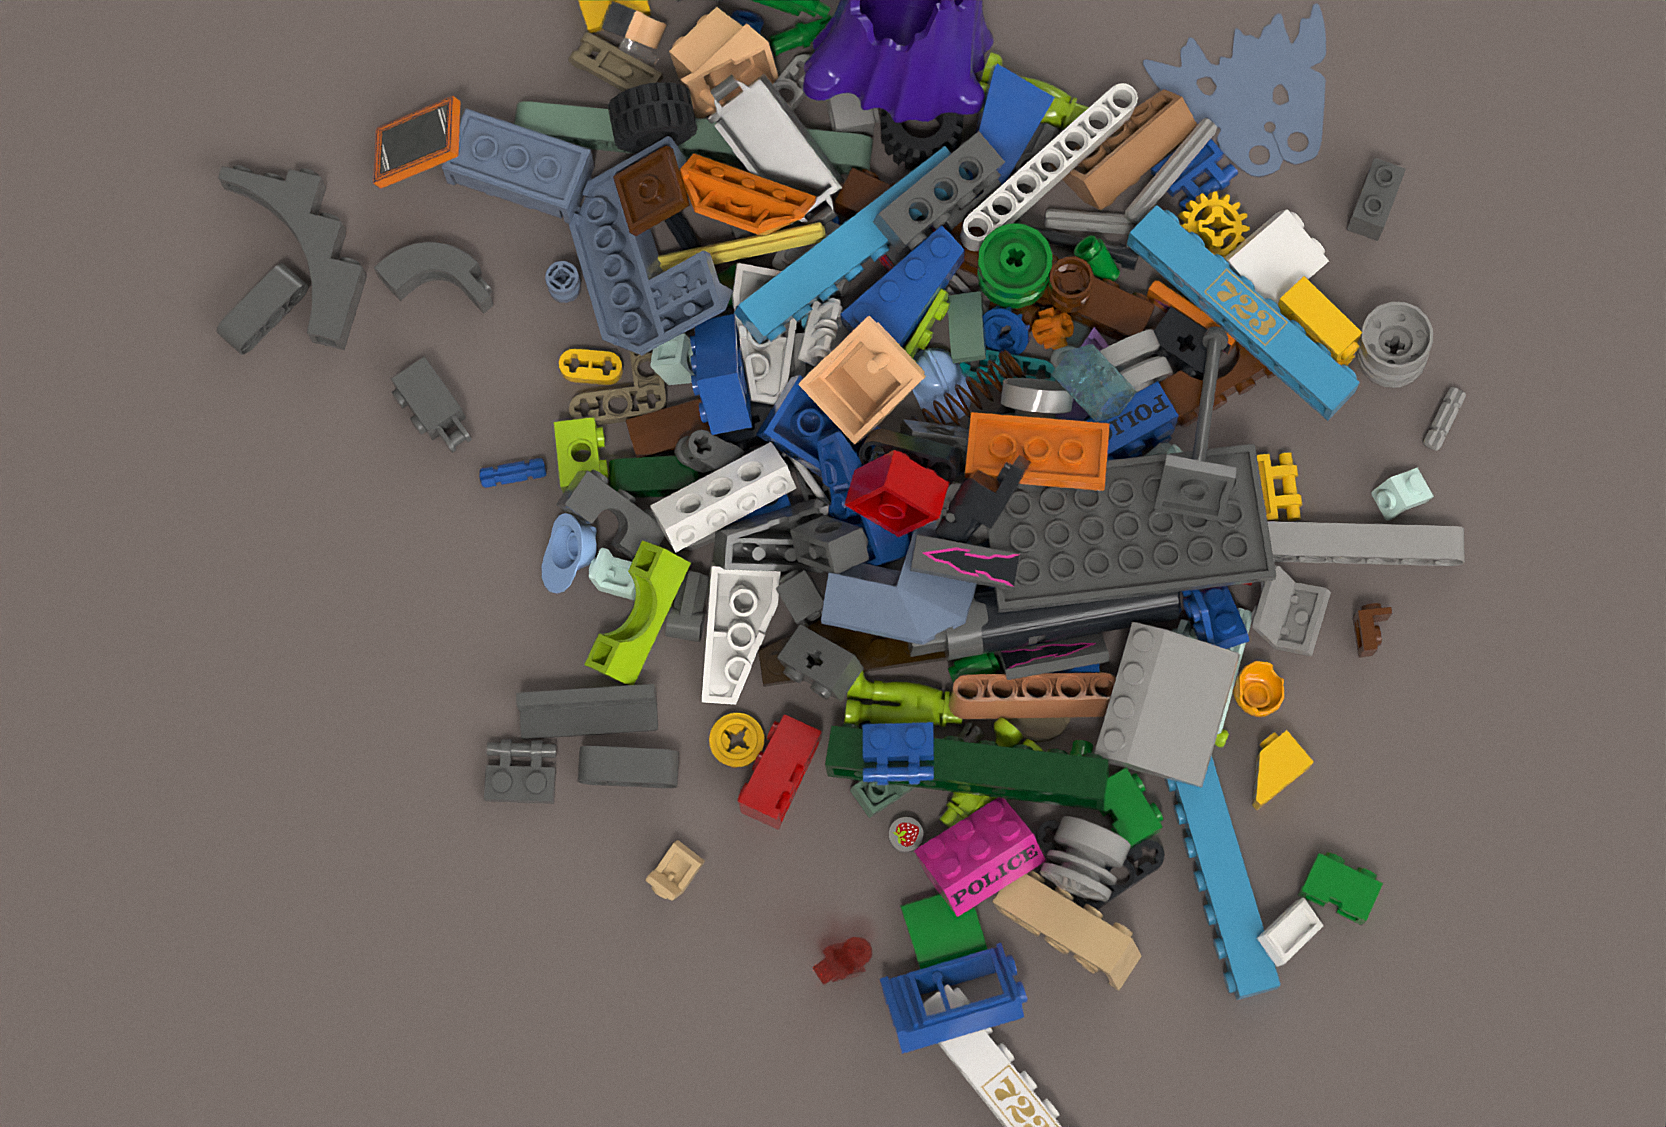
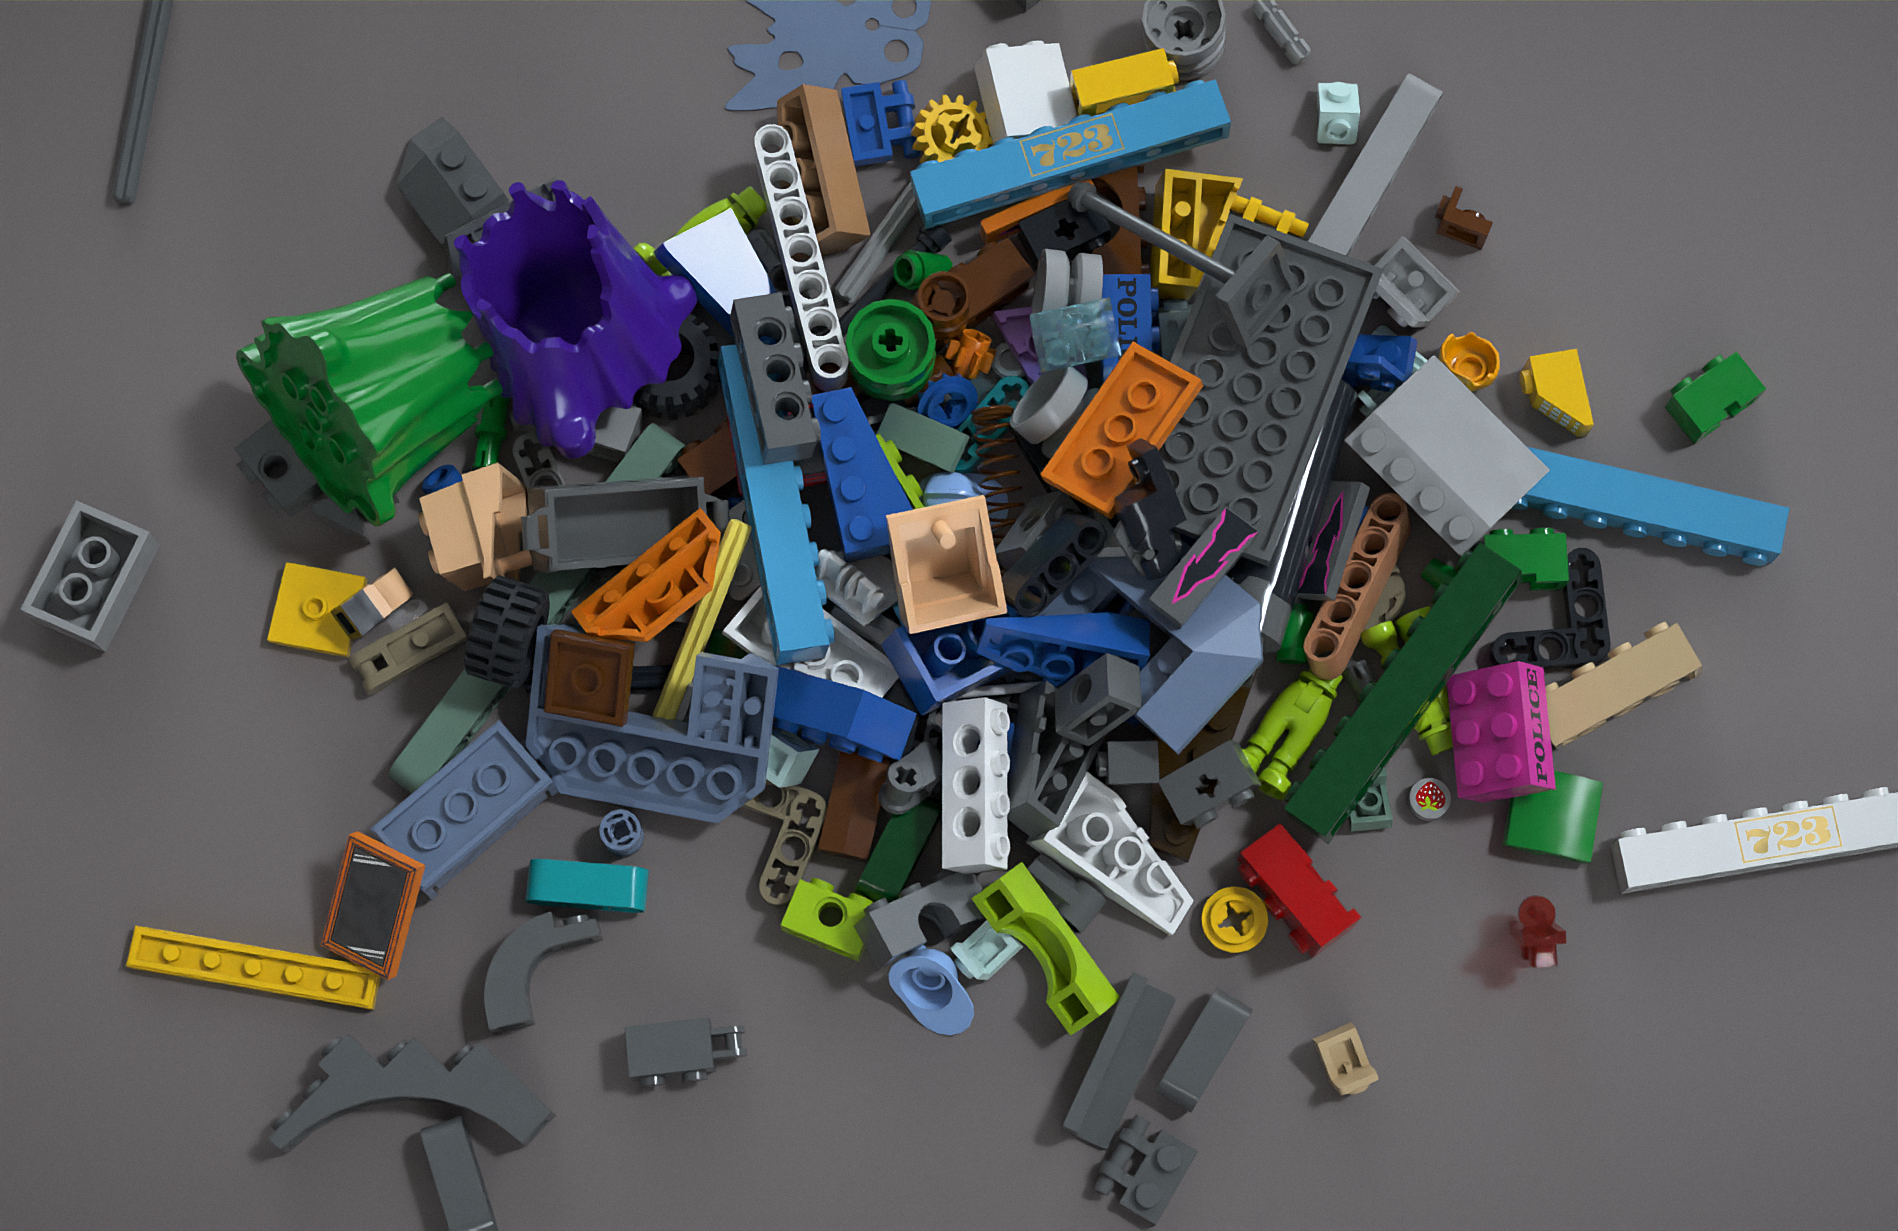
camera: 65 degrees left, 0 degrees up
(337, 93) = (253, 967): none -> yellow tile
(512, 472) = (805, 1002): blue axle -> none
(513, 279) = (587, 885): none -> teal beam
(590, 374) = (724, 850): yellow beam -> none
(897, 493) = (1090, 595): red brick -> none
(898, 743) = (1345, 747): blue plate -> none
(919, 1030) = (1635, 892): blue door -> none
(1083, 863) = (1565, 626): light grey wheel -> none
(1170, 171) = (870, 143): light grey axle -> none
(1249, 421) = (1193, 211): none -> yellow wedge
(1290, 932) = (1736, 469): white tile -> none

